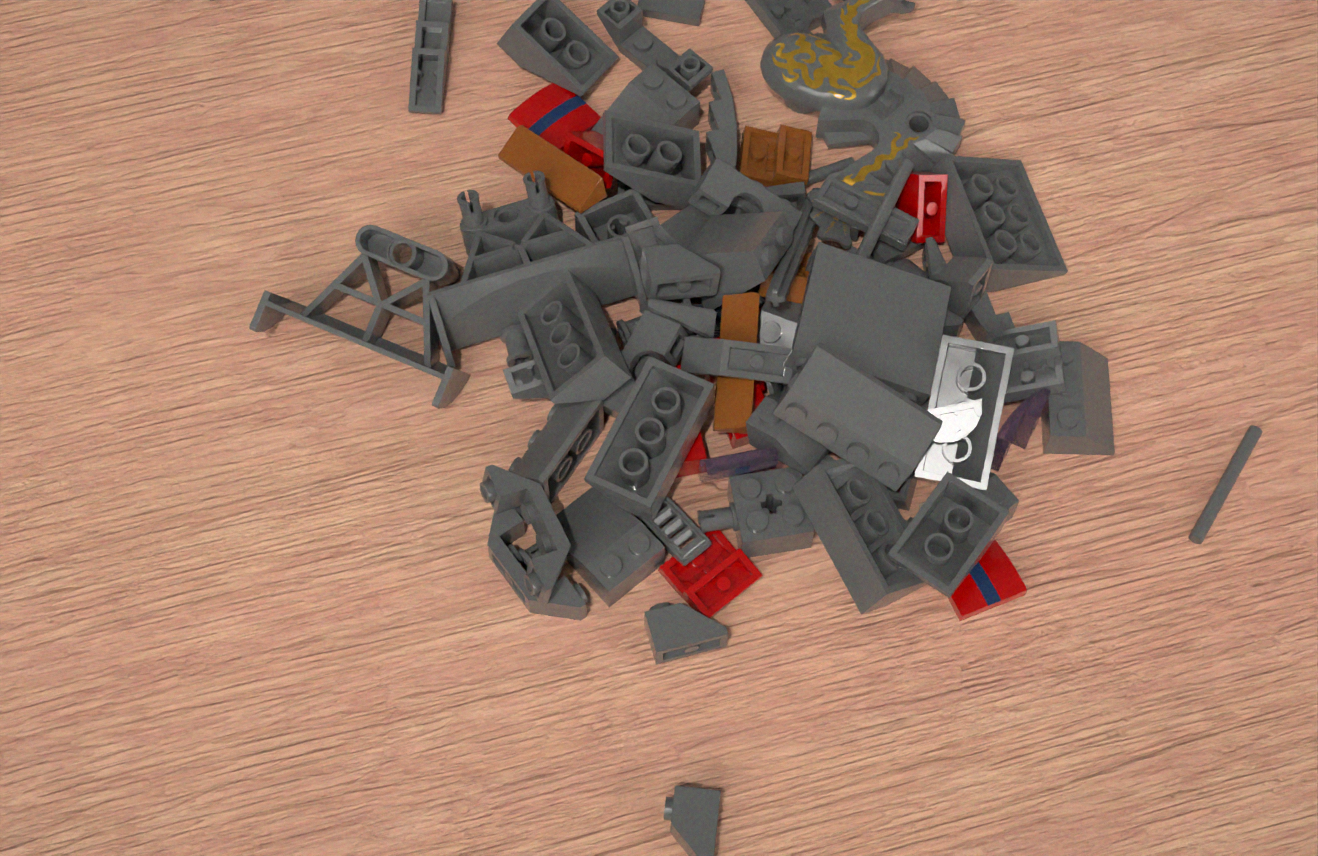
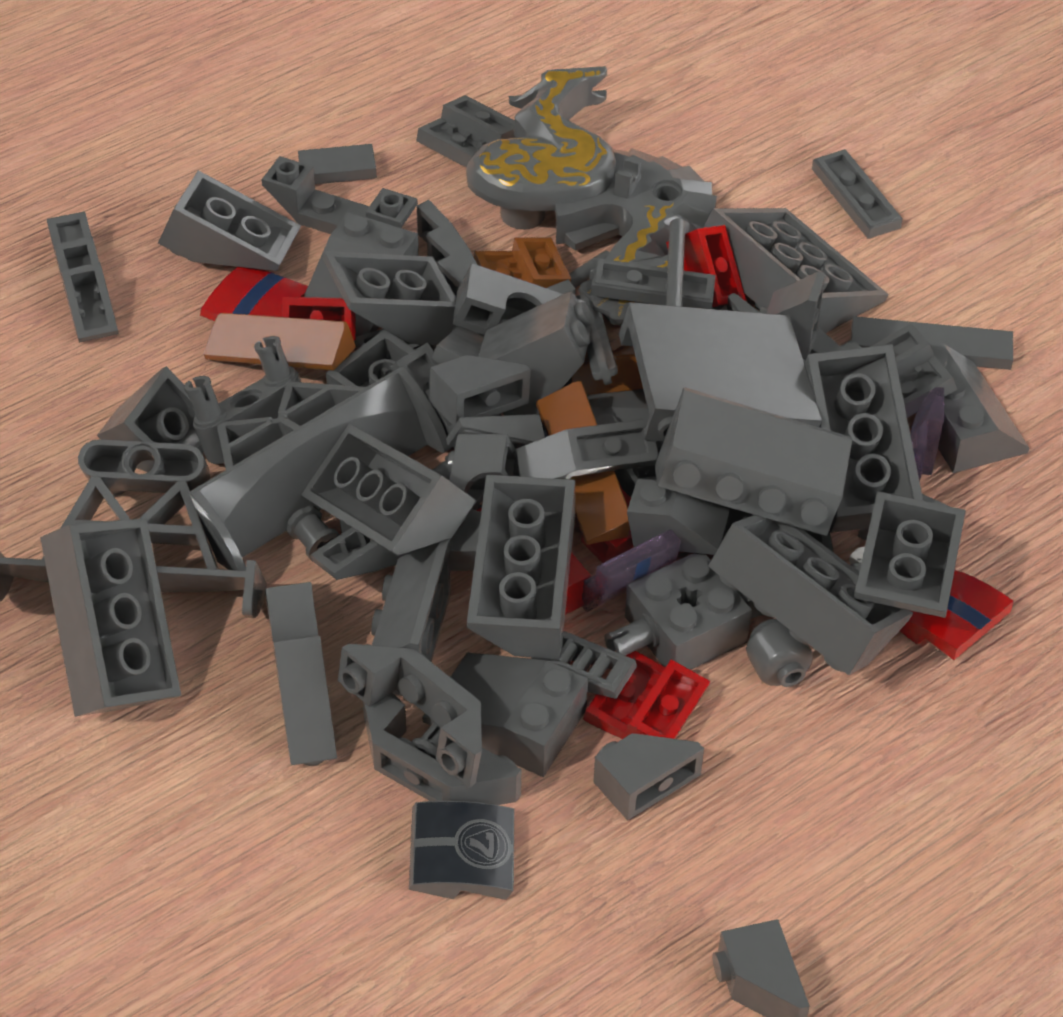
camera: 20 degrees left, 15 degrees down
(334, 377) = (110, 615): none -> dark grey slope
(432, 213) = (154, 413): none -> dark grey slope
(461, 460) = (301, 674): none -> dark grey slope
(523, 647) = (462, 849): none -> black slope
(820, 572) = (777, 655): none -> dark grey head
(957, 420) = (867, 437): tile -> none
(1077, 325) = (982, 346): none -> dark grey tile
(1087, 164) = (857, 194): none -> dark grey tile

